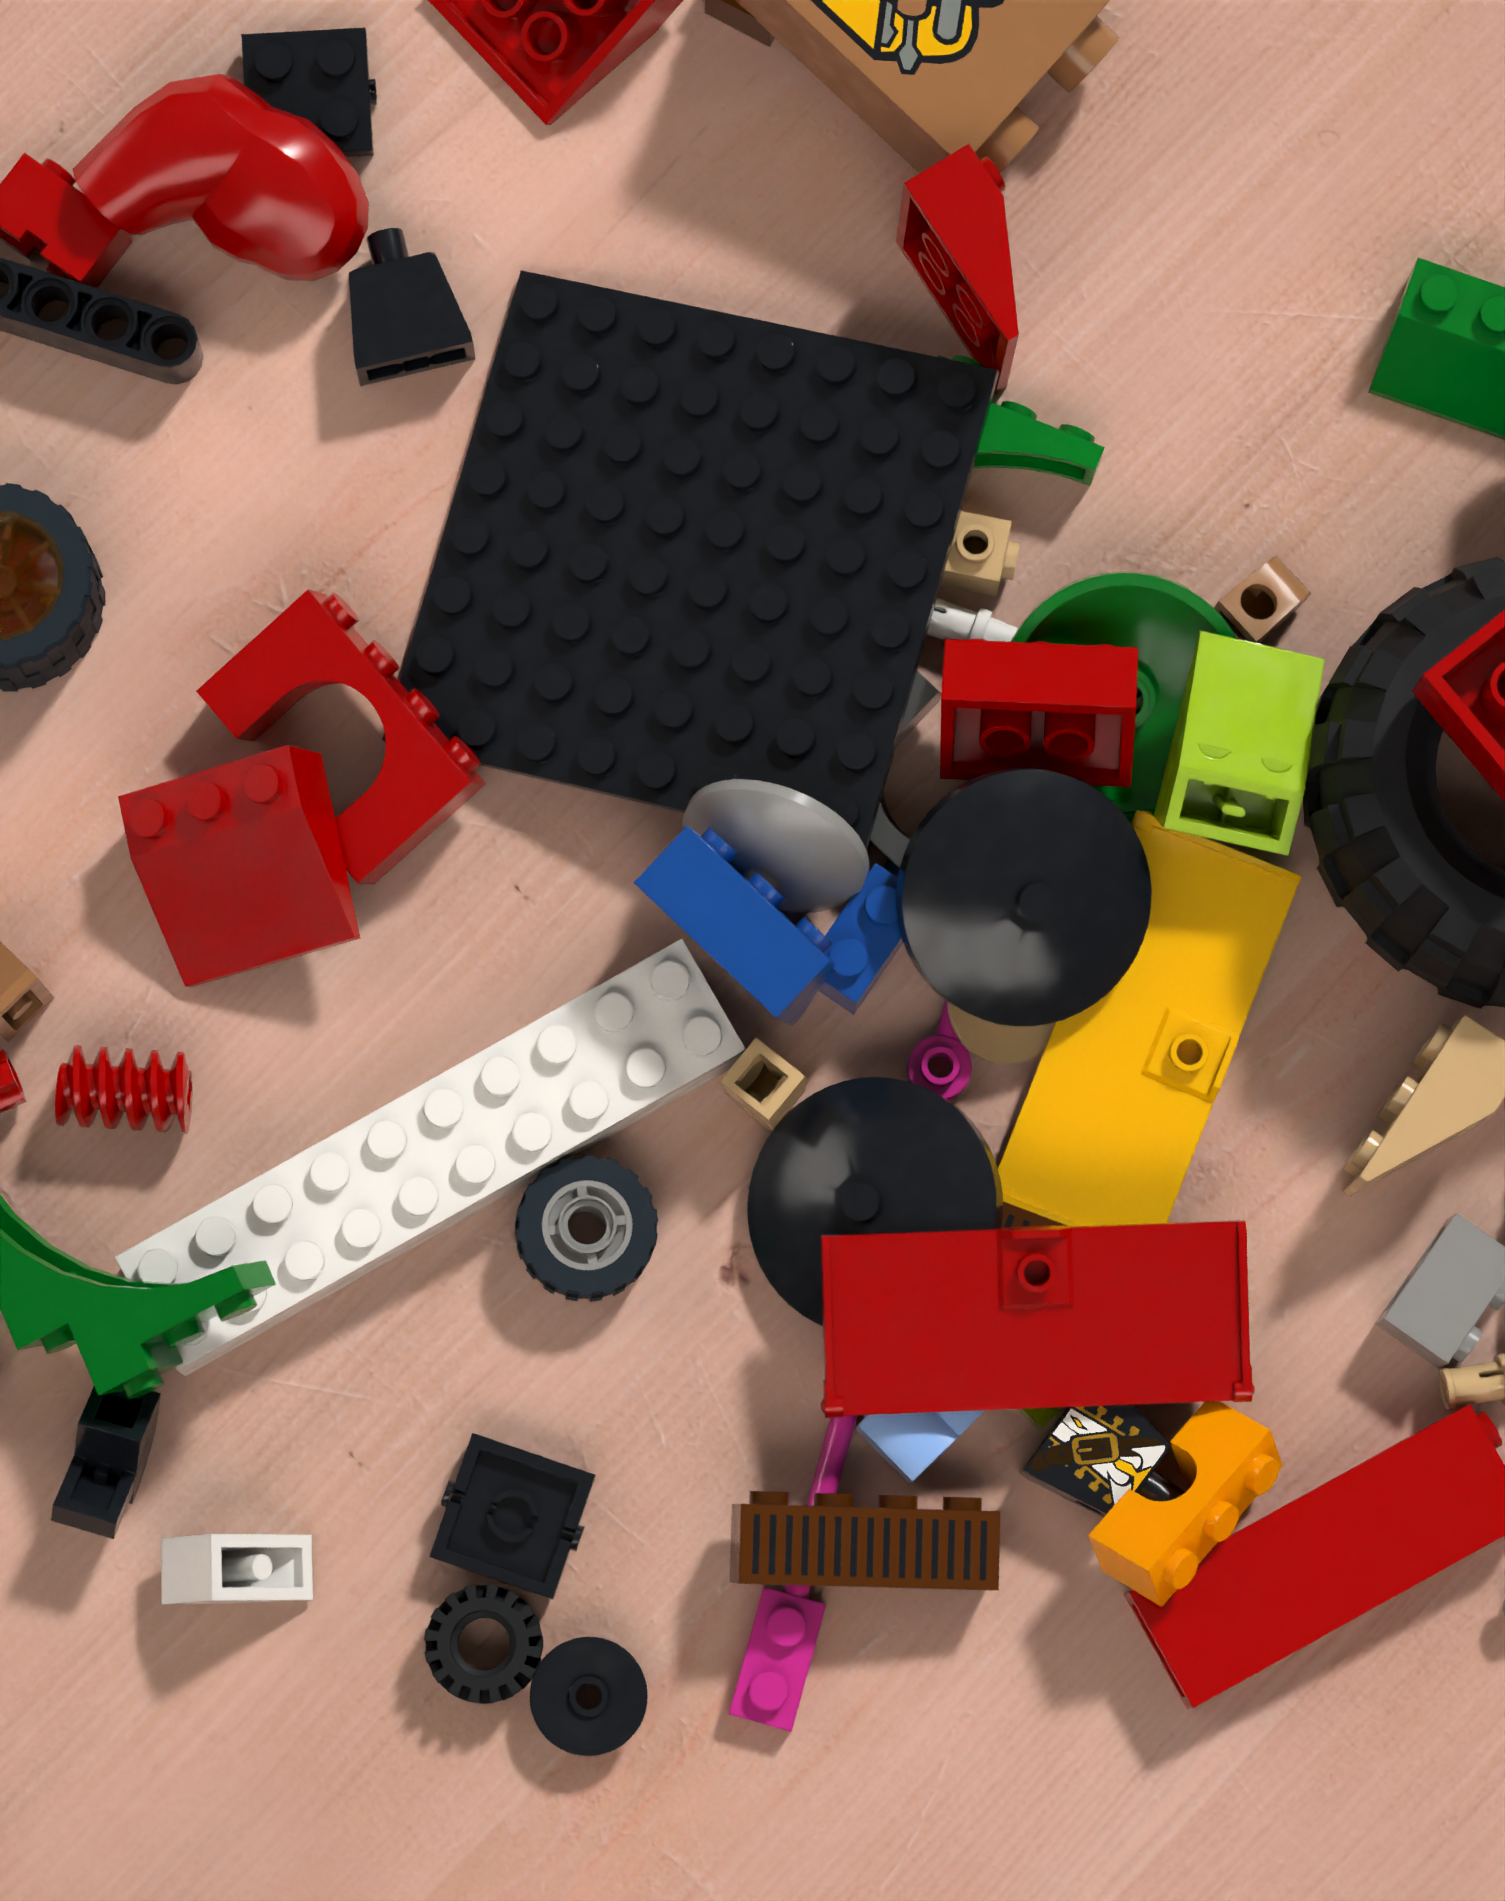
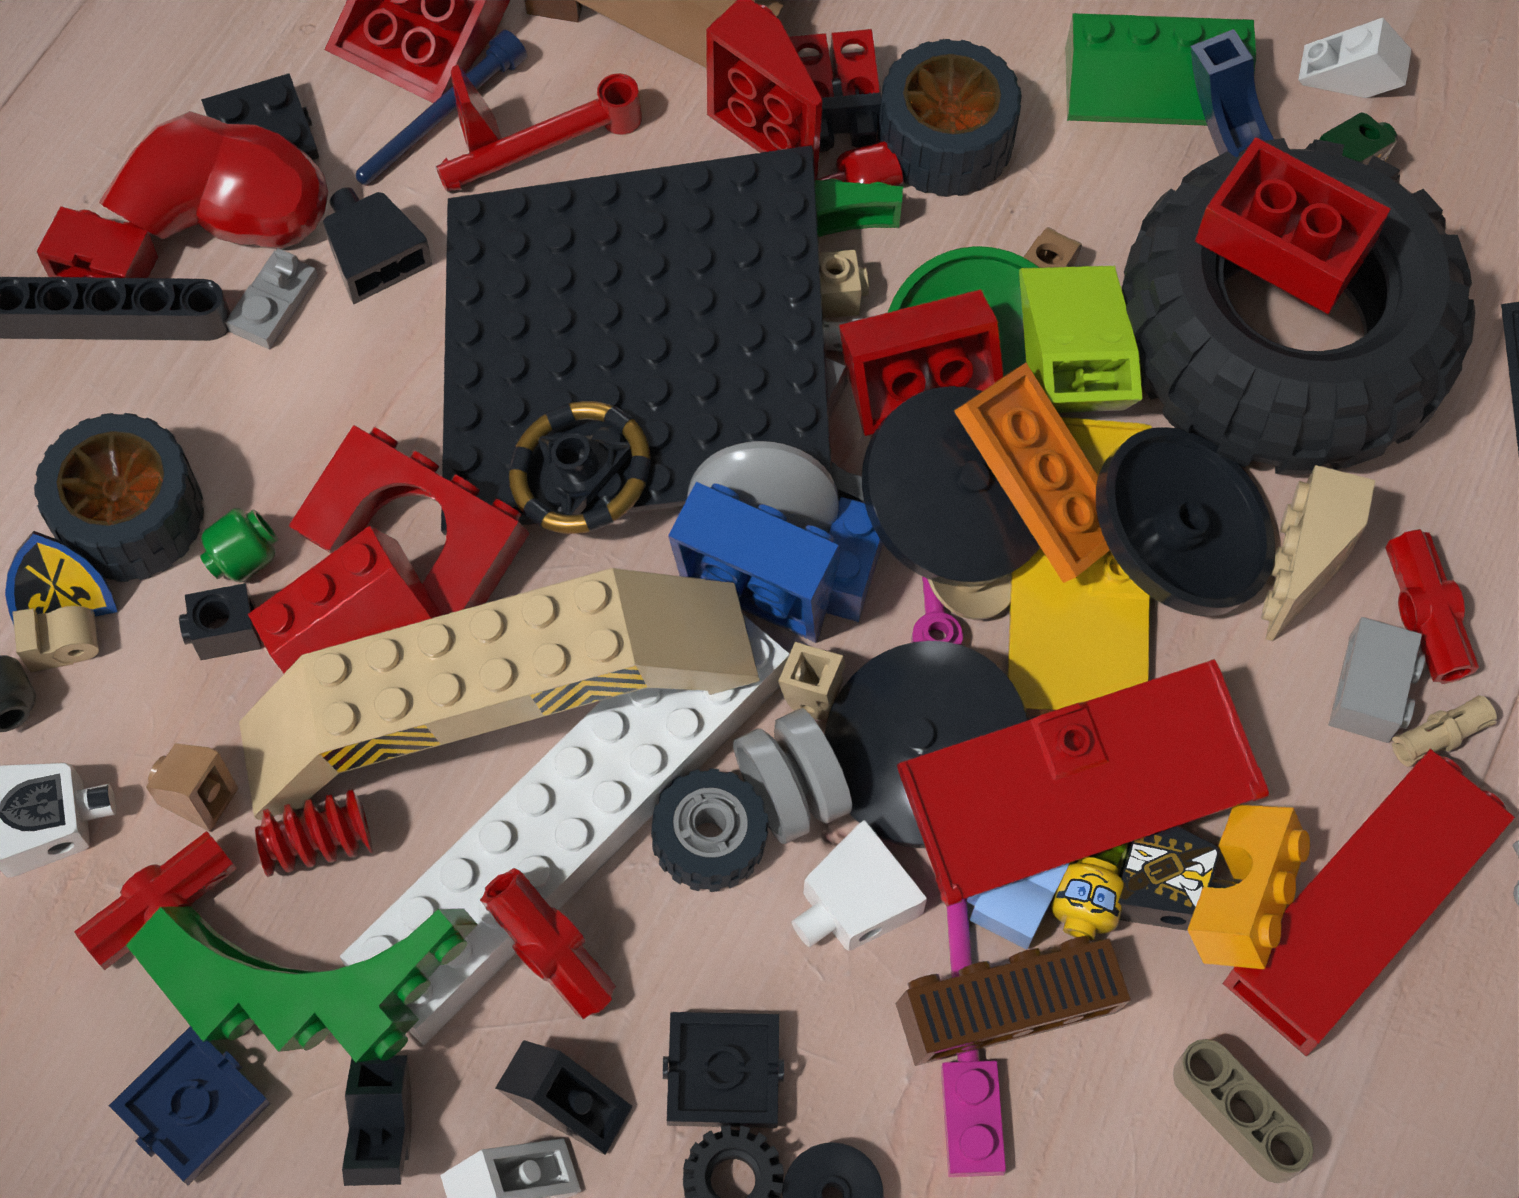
camera: 15 degrees left, 15 degrees down
(102, 806) = (234, 636): none -> black brick
(131, 690) = (238, 545): none -> green head
(259, 351) = (271, 299): none -> light grey plate
(323, 1491) = (564, 1095): none -> black slope
(354, 1317) = (548, 943): none -> red piece
(385, 983) = (489, 673): none -> tan slope
(569, 724) = (580, 467): none -> black piece
(589, 172) = (474, 114): none -> red slope
(651, 77) = (504, 54): none -> dark blue piece
(672, 218) = (549, 133): none -> red piece
(701, 1200) = (793, 774): none -> light grey wheel
(732, 1359) = (858, 893): none -> white torso
(998, 1453) = (1088, 898): none -> yellow head
(1068, 284) = (853, 96): none -> hips
(1069, 394) = (868, 166): none -> red piece
(1108, 1772) = (1270, 1119): none -> dark tan beam
(1128, 917) = (1038, 468): none -> orange plate
(1201, 358) = (950, 116): none -> black wheel
(1289, 1023) = (1185, 522): none -> black dish

